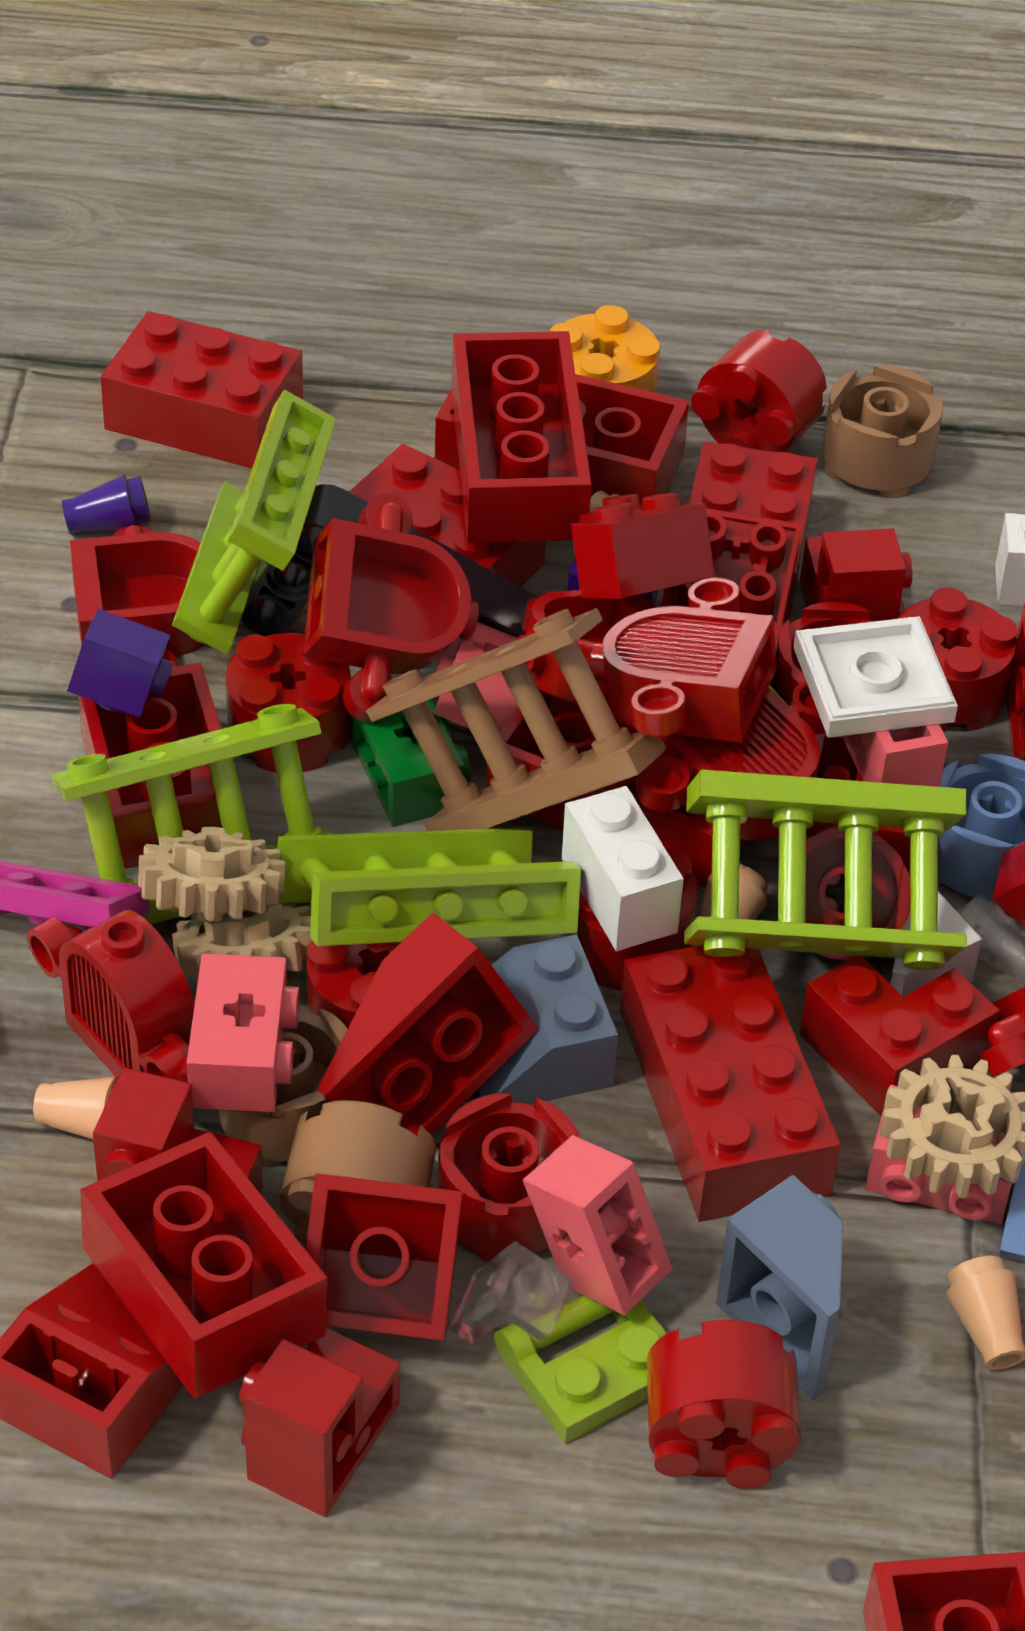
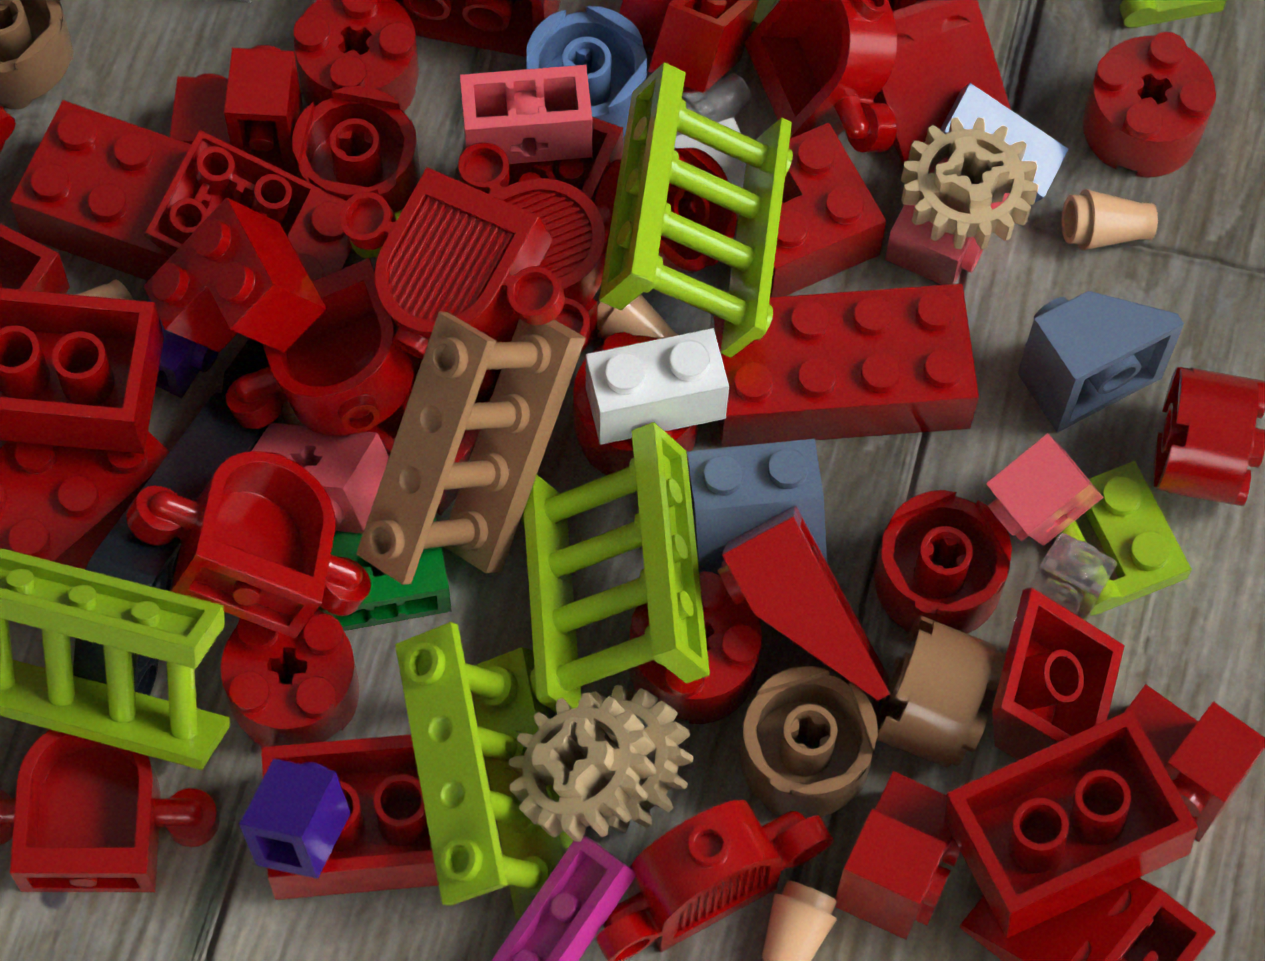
camera: 80 degrees left, 20 degrees up
(239, 1032) = (845, 765): coral brick -> none
(874, 676) = (498, 103): white tile -> none

